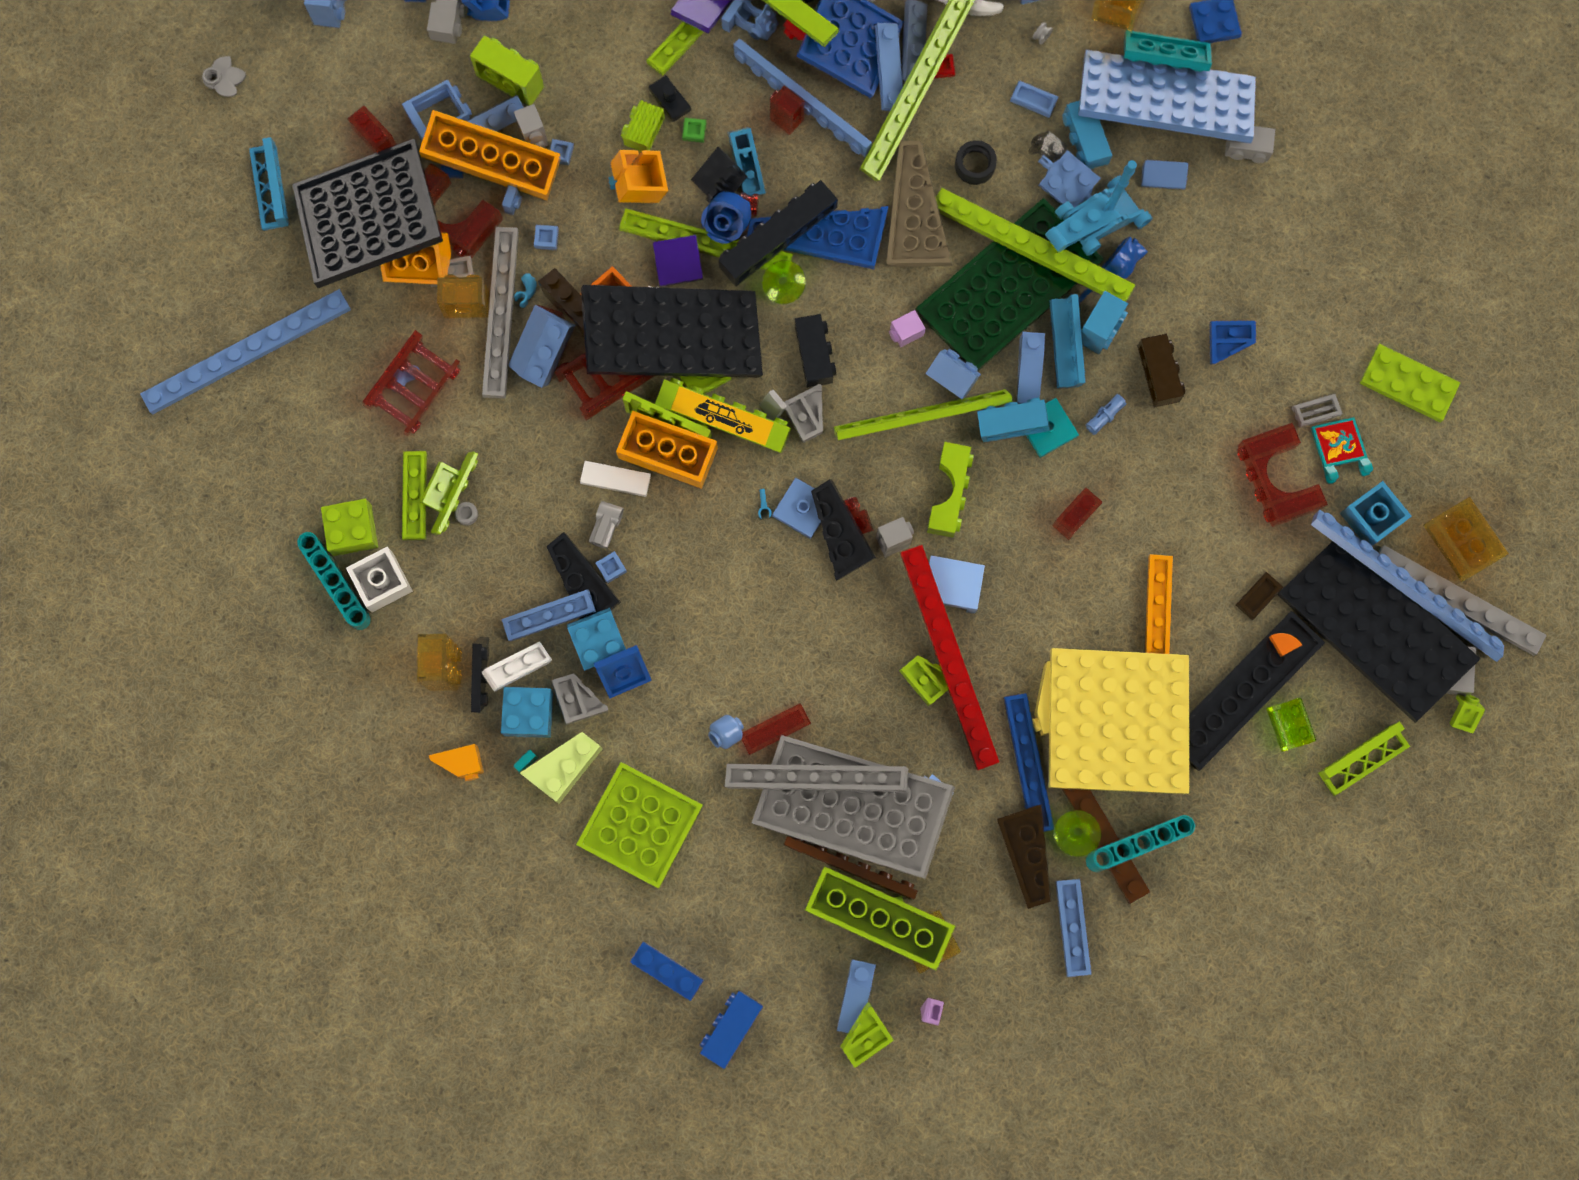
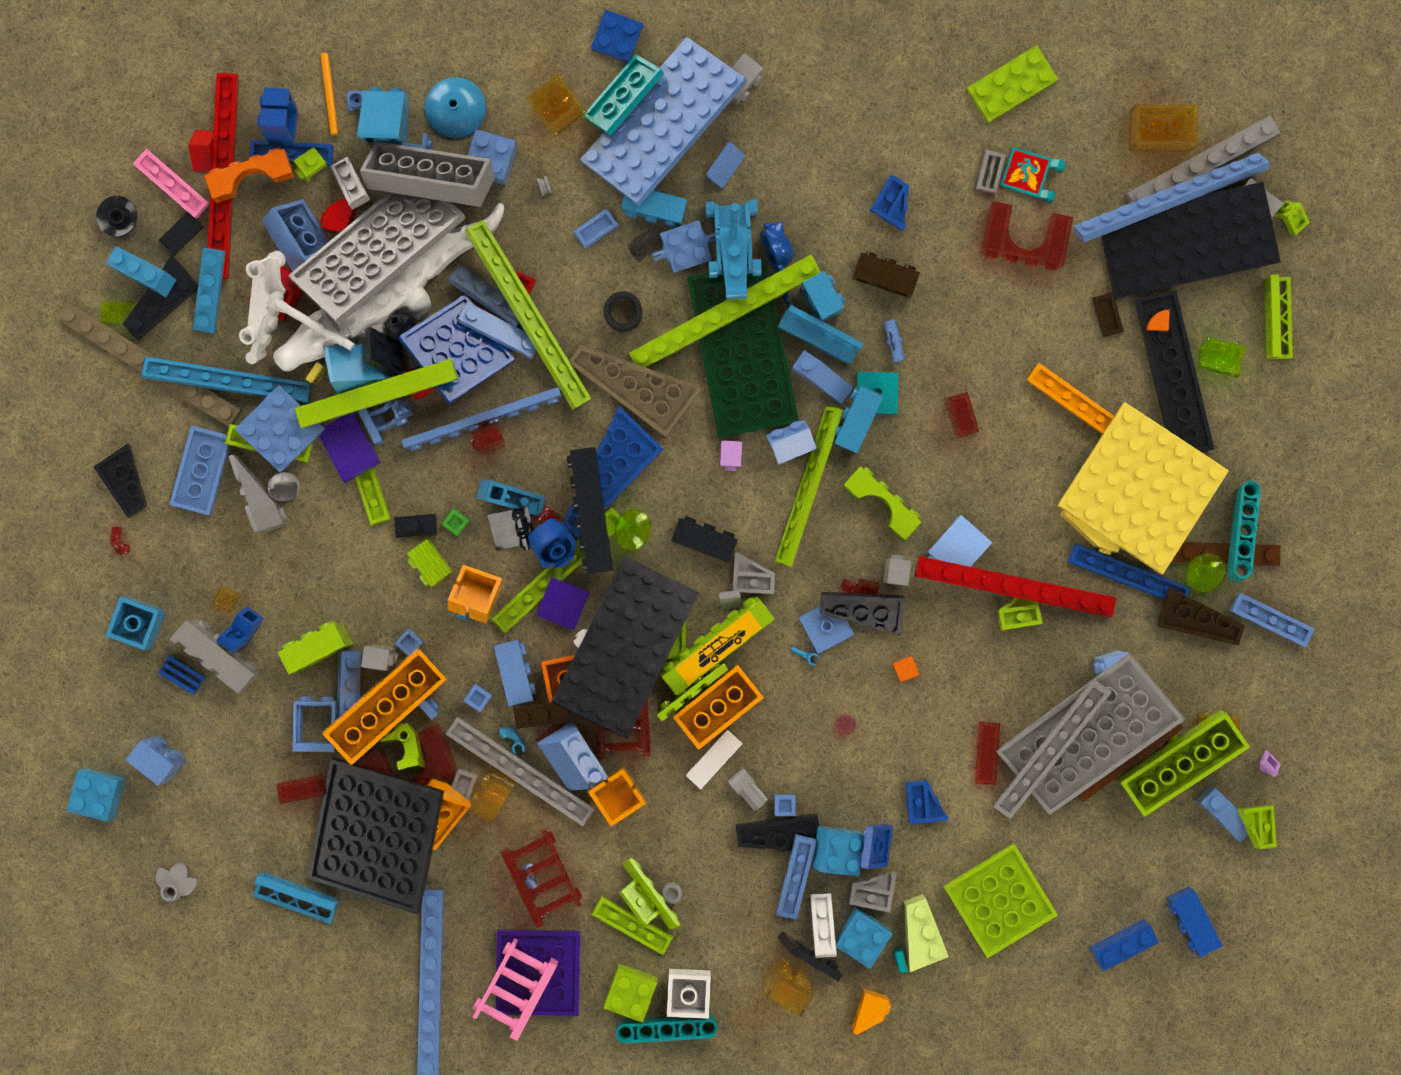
camera: 60 degrees left, 10 degrees up
(304, 436) = (526, 1006): none -> bright pink fence
(320, 434) = (562, 990): none -> dark purple plate
(456, 209) = (413, 755): none -> lime tile
(527, 409) = (617, 796): none -> light orange piece
(589, 254) = (515, 672): none -> medium blue brick
(689, 695) = (922, 803): none -> blue wing
(720, 580) = (845, 724): none -> clear pink tile
(726, 731) = (968, 792): medium blue head -> none
(808, 605) = (905, 669): none -> orange tile
(1375, 514) = (1102, 184): dark azure brick -> none

